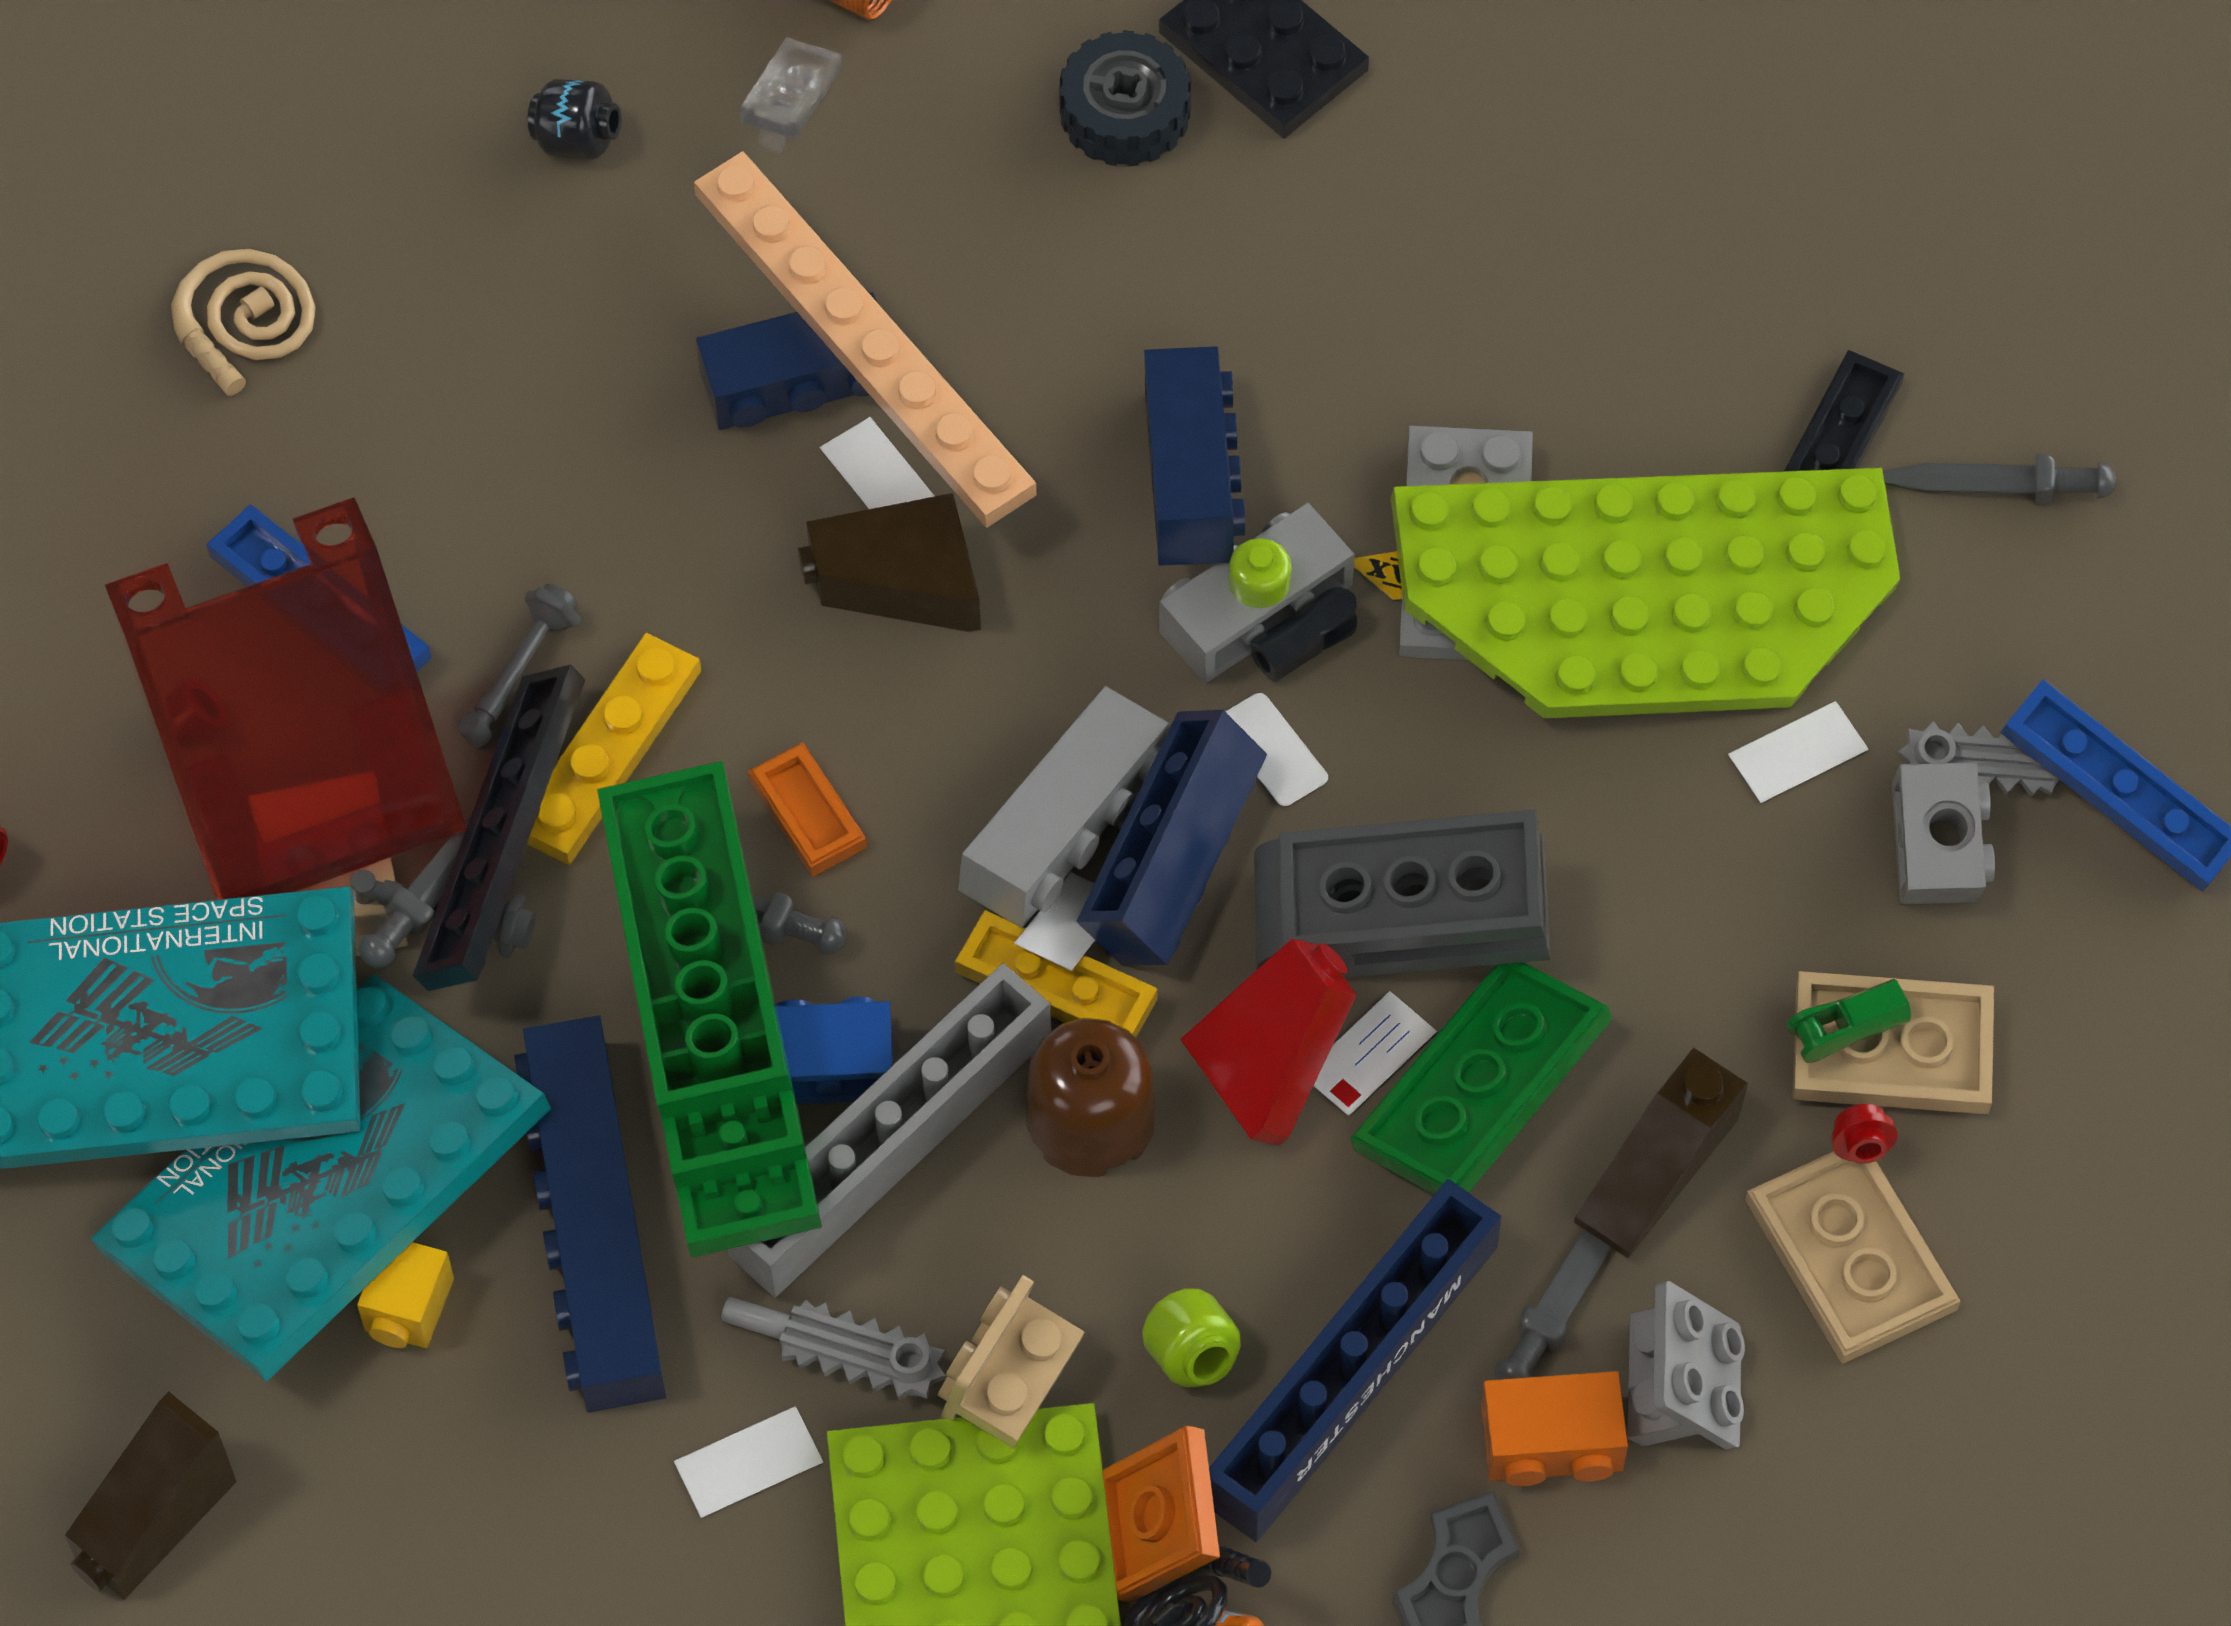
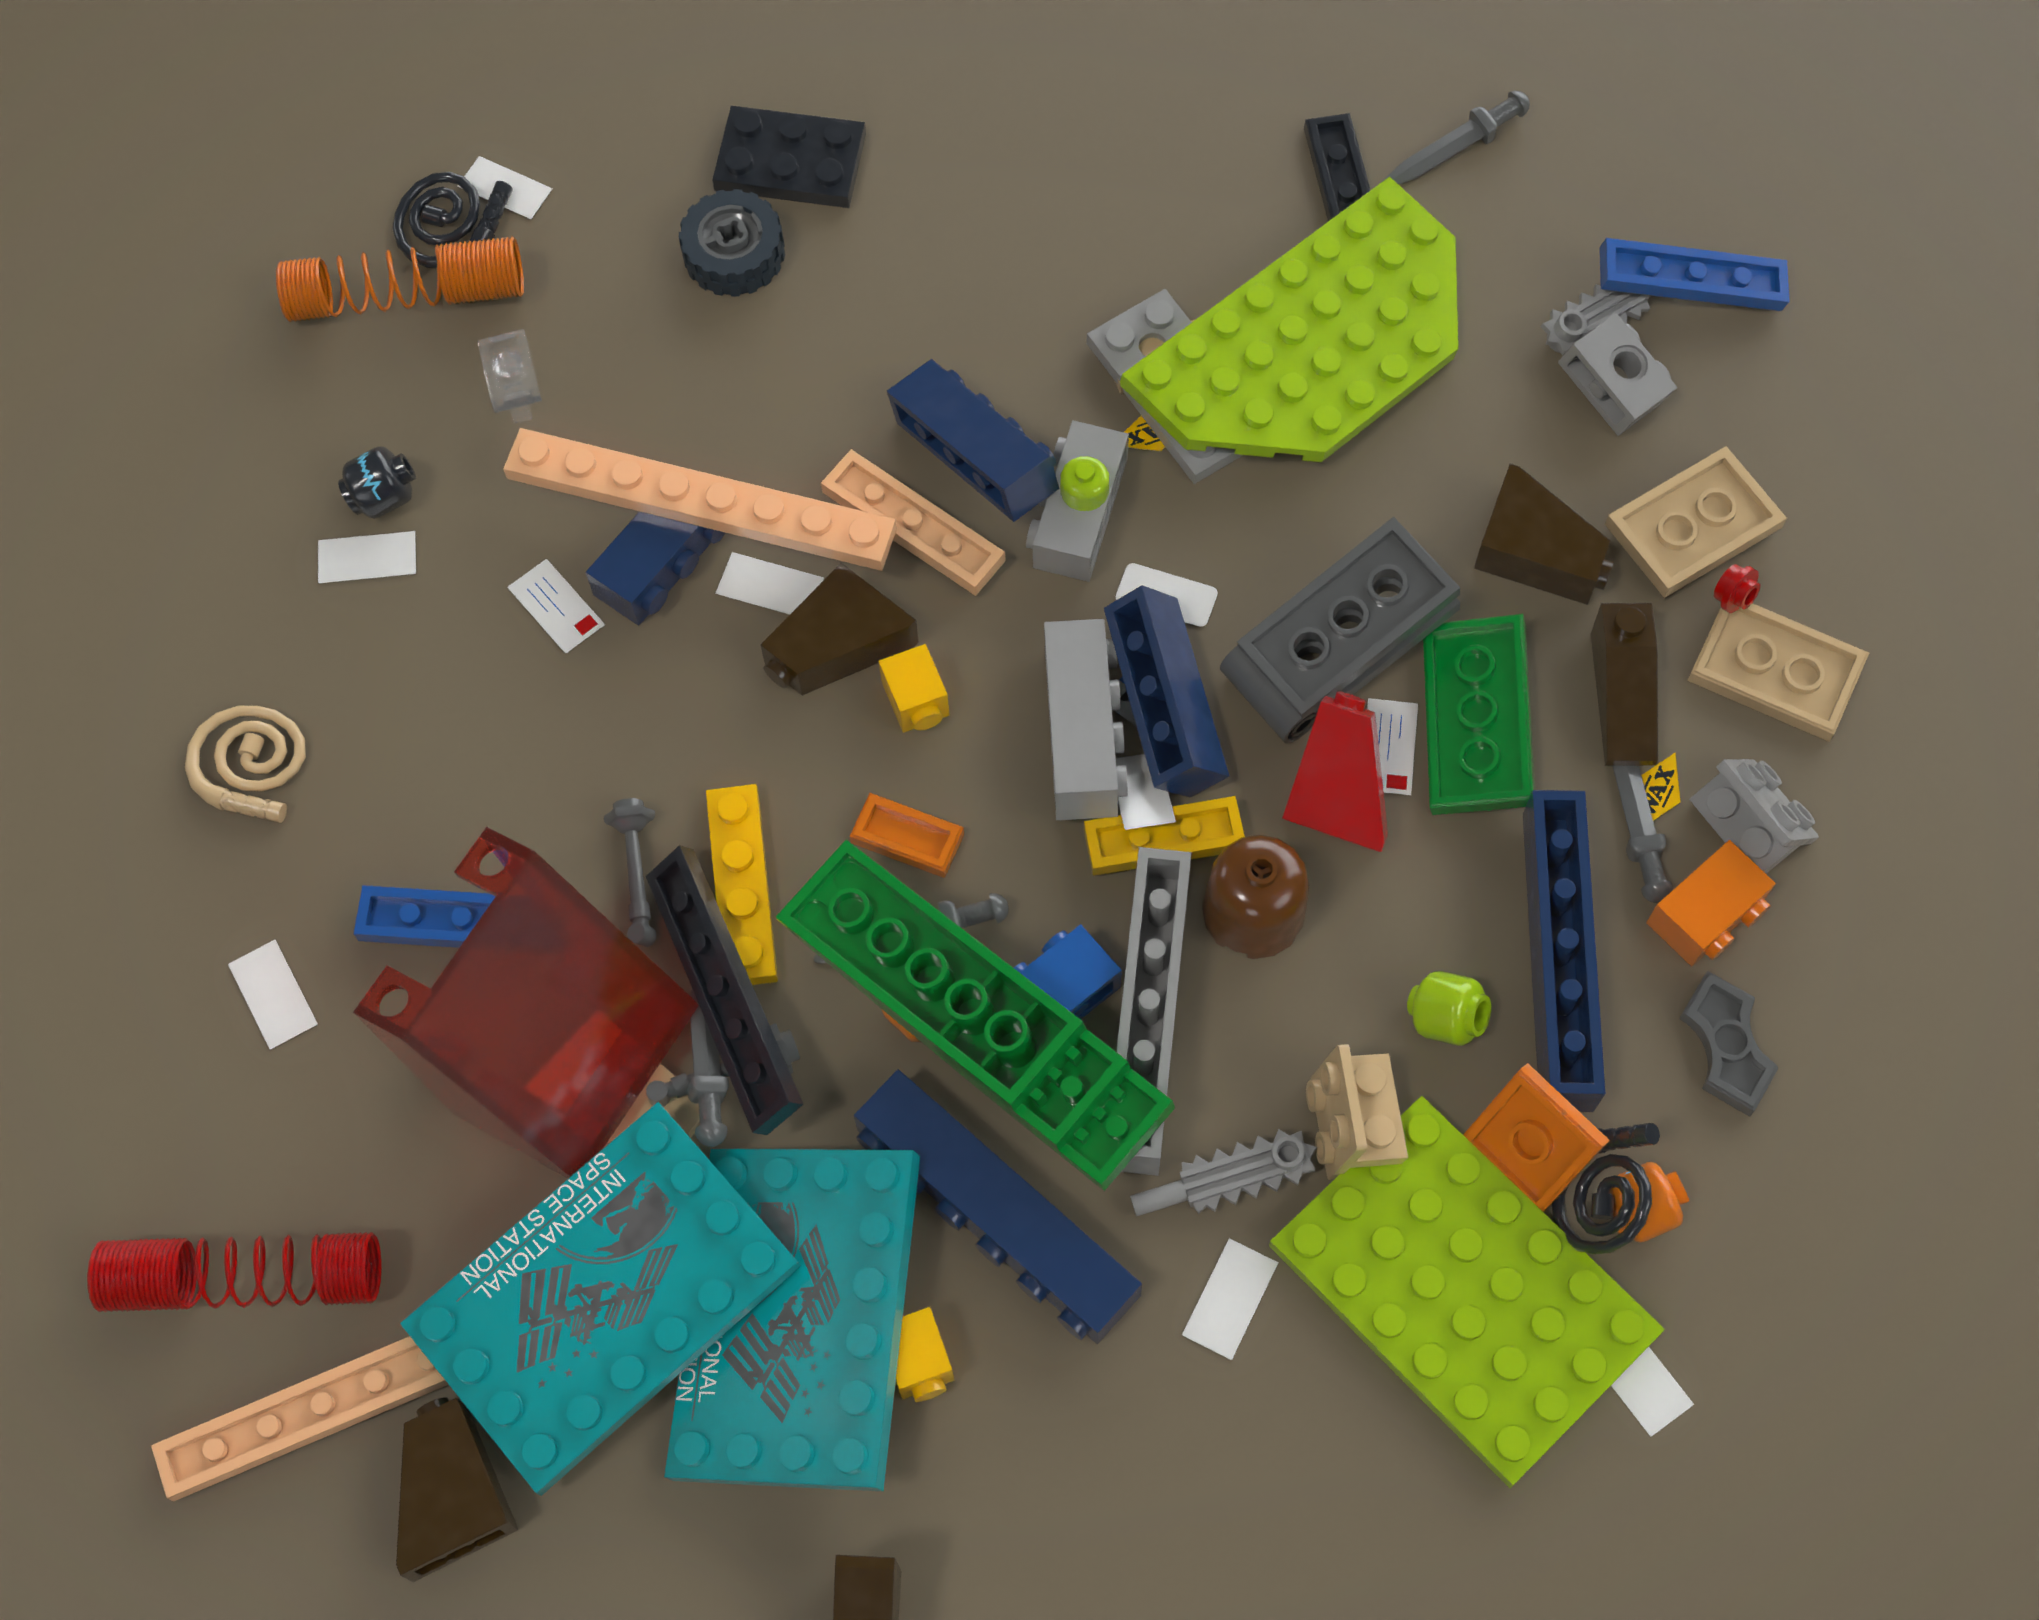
camera: 35 degrees left, 5 degrees up
(94, 553) = (272, 994): none -> white sticker
(512, 189) = (366, 557): none -> white sticker
(654, 357) = (556, 606): none -> white sticker
(928, 669) = (914, 689): none -> yellow brick
(1070, 504) = (920, 524): none -> light nougat plate
(1306, 633) = (1130, 506): black bar -> none
(1617, 1286) = (1662, 786): none -> yellow sticker
(1702, 950) = (1542, 541): none -> dark brown slope
(1798, 751) = (1480, 383): white sticker -> none
(1855, 1016) = (1671, 520): green bar -> none

